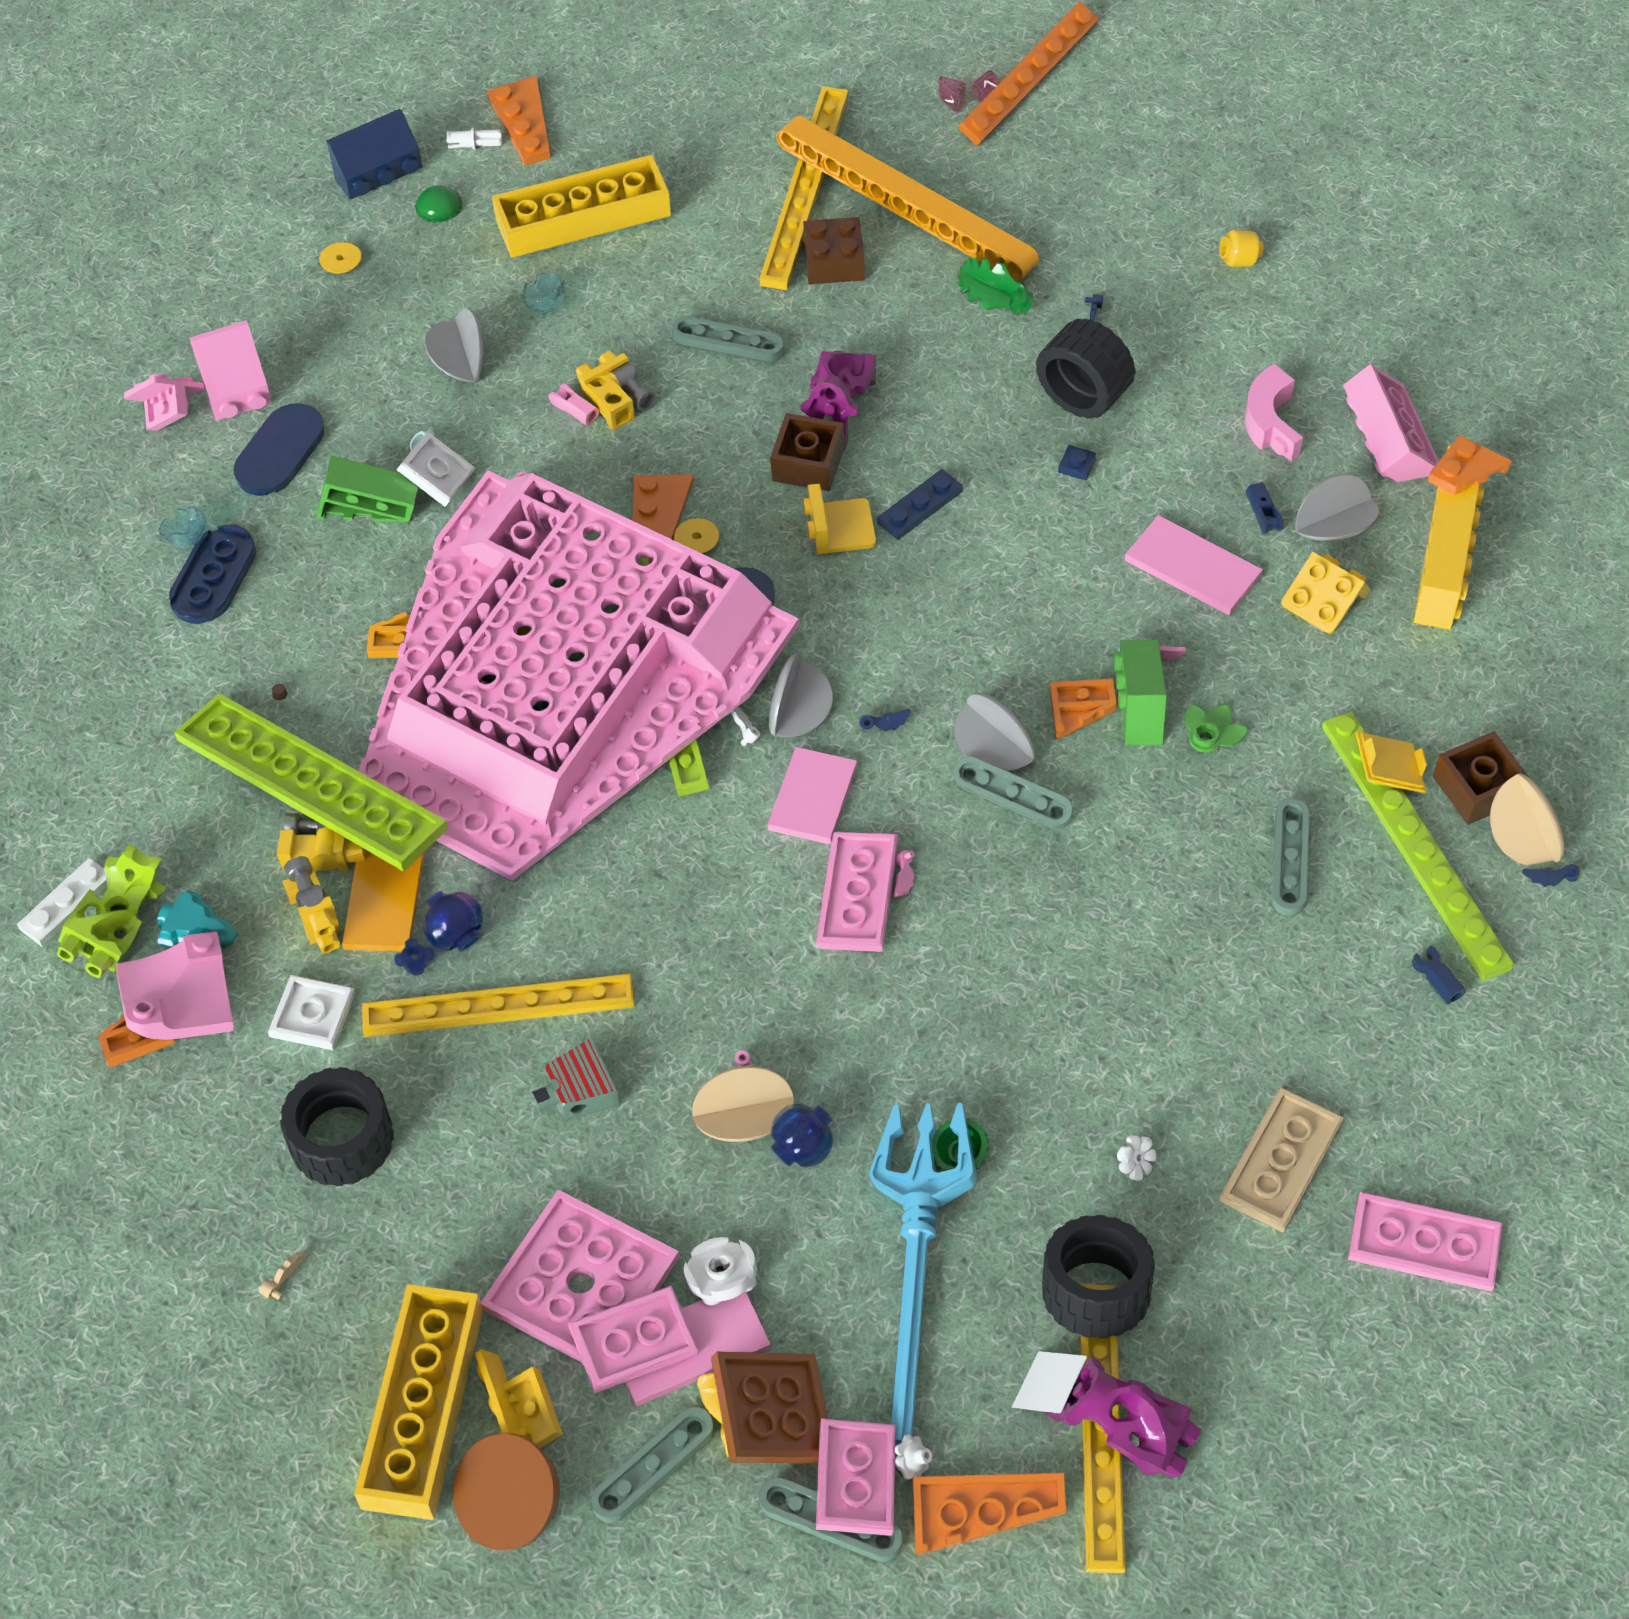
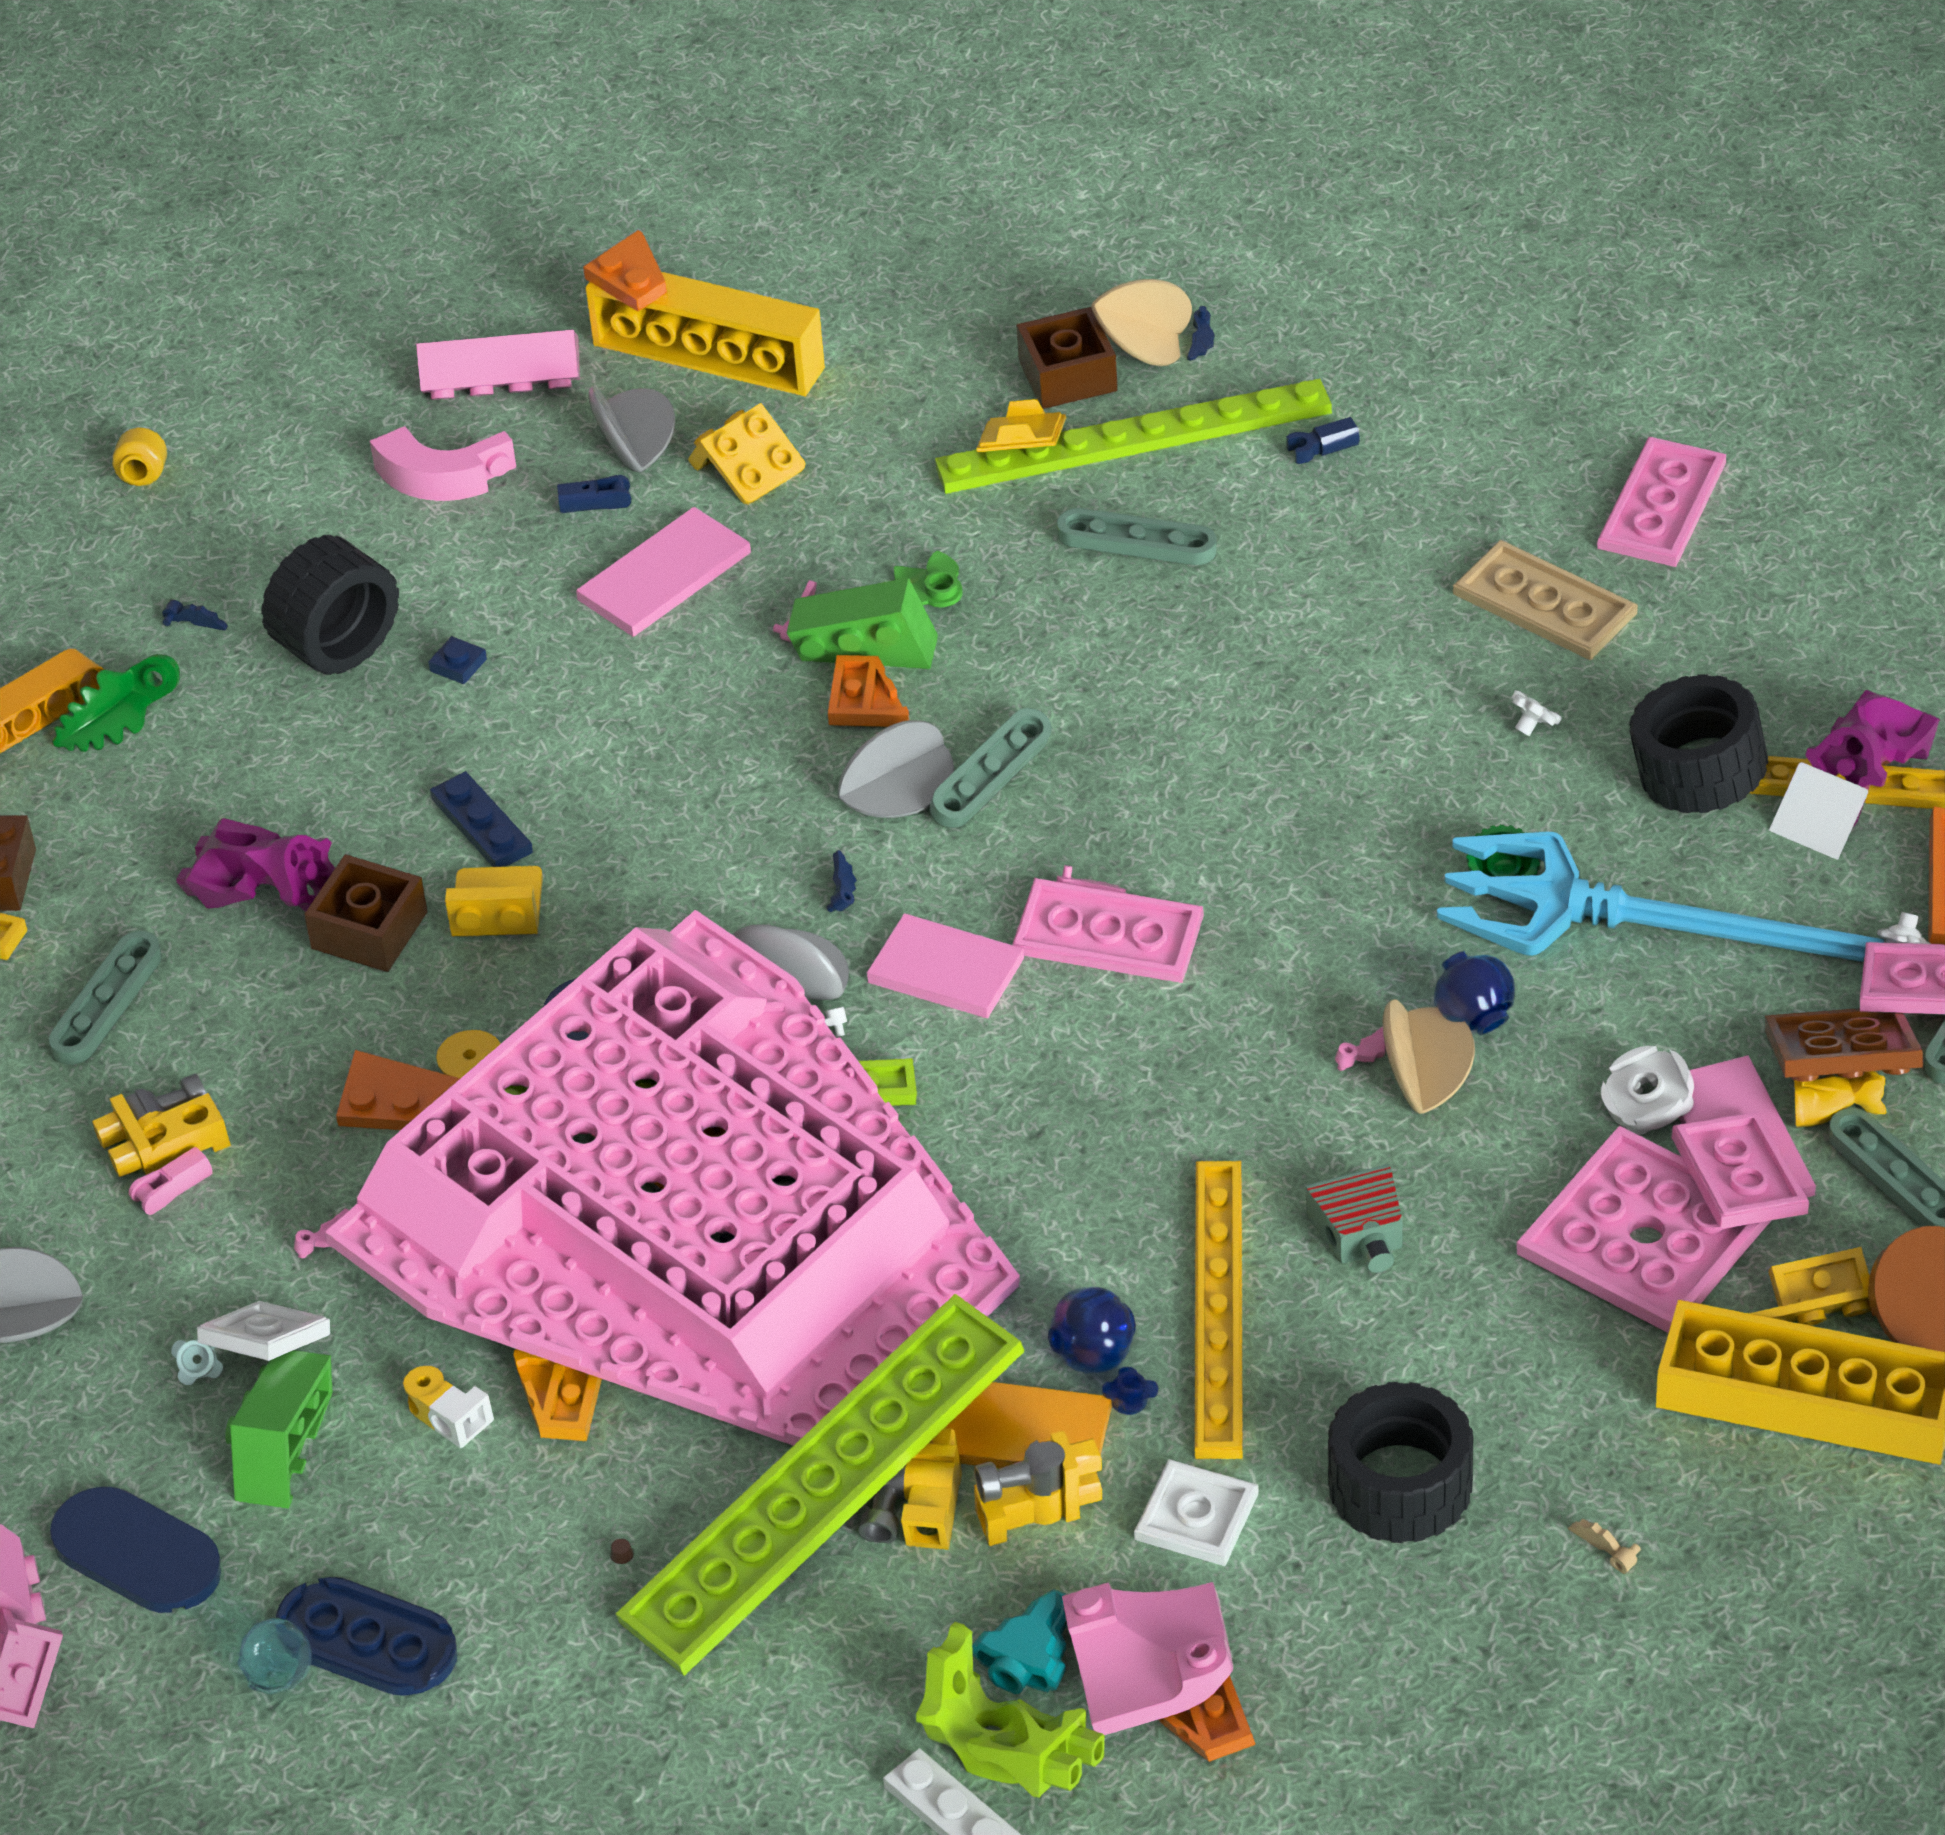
camera: 80 degrees left, 10 degrees down
(388, 575) = (445, 1407): none -> white leg

